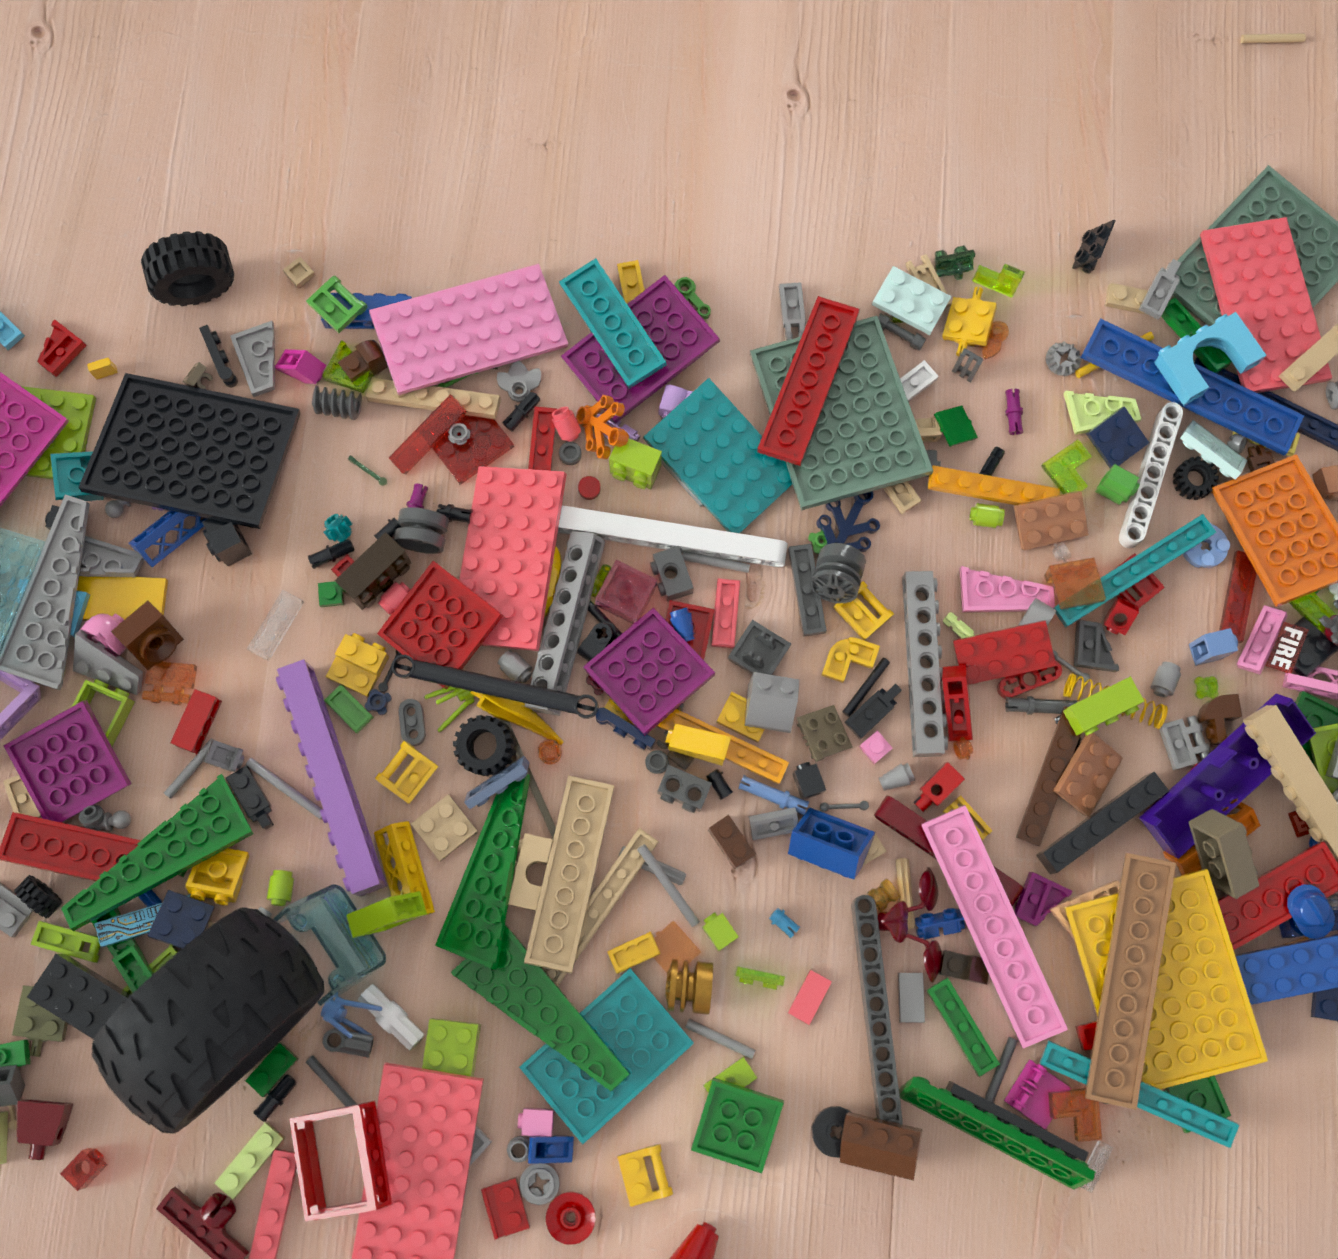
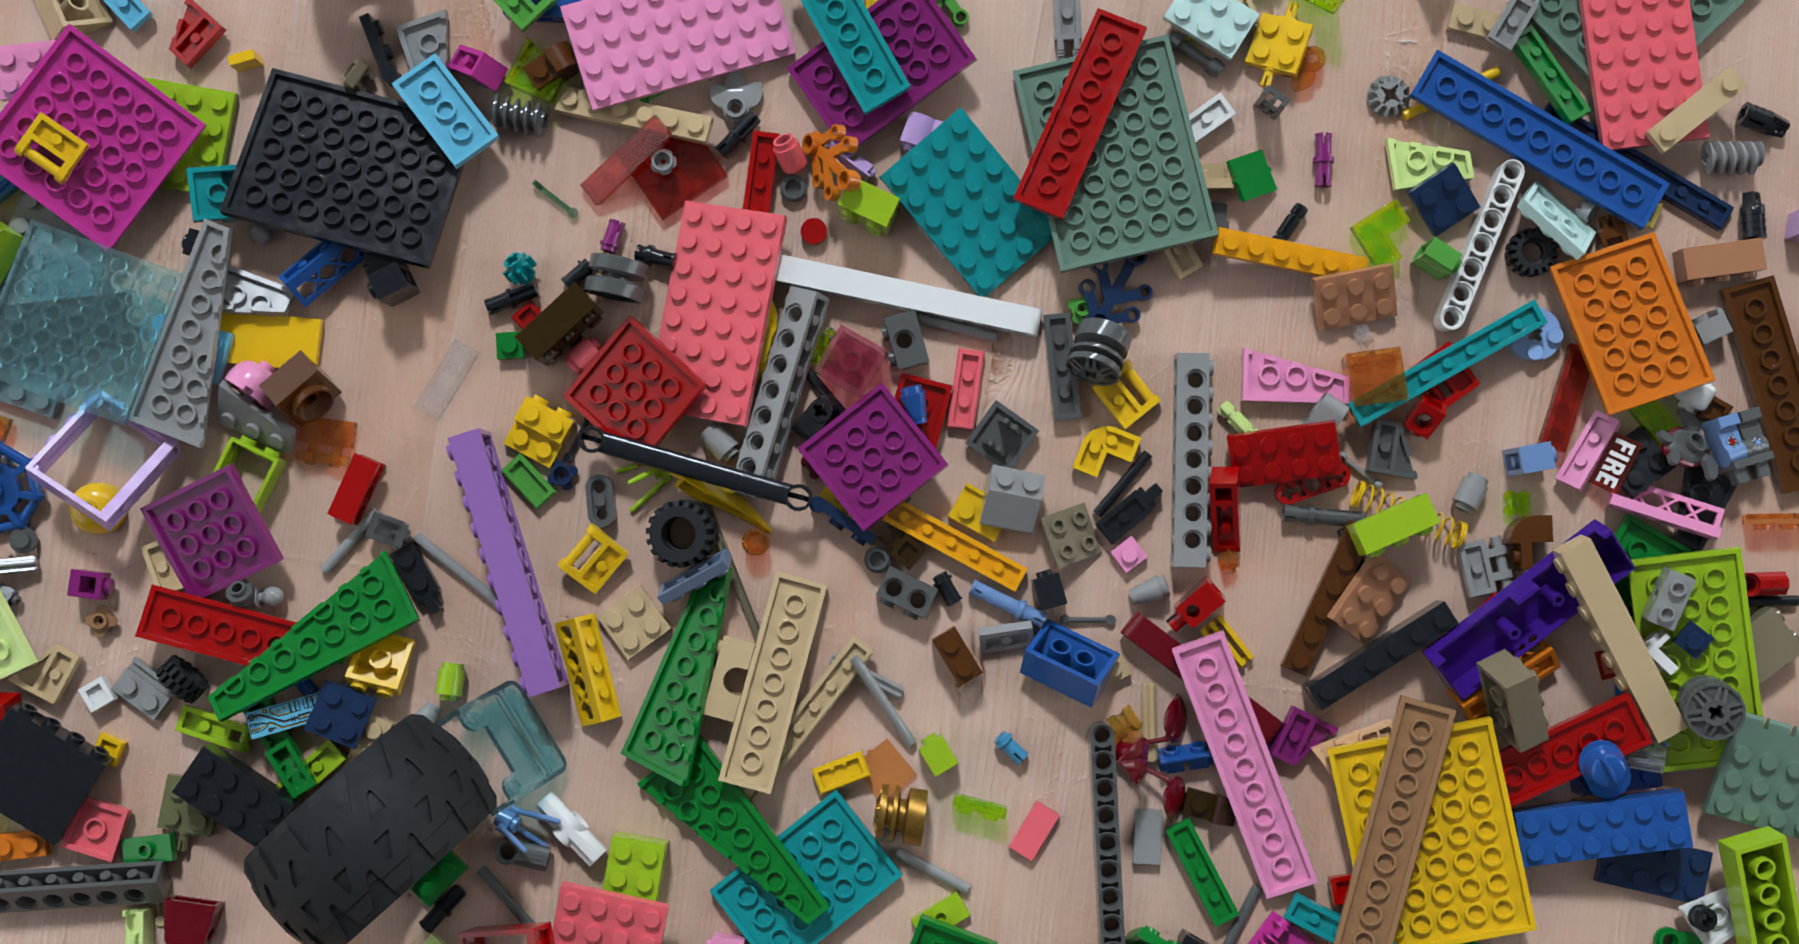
camera: 10 degrees right, 10 degrees up
(273, 400) = (445, 111): none -> medium azure plate
(386, 914) = (567, 720): lime window -> none
(698, 743) = (924, 544): yellow slope -> none
(987, 515) = (1279, 287): lime brick -> none
(1226, 334) = (1588, 80): medium azure arch -> none

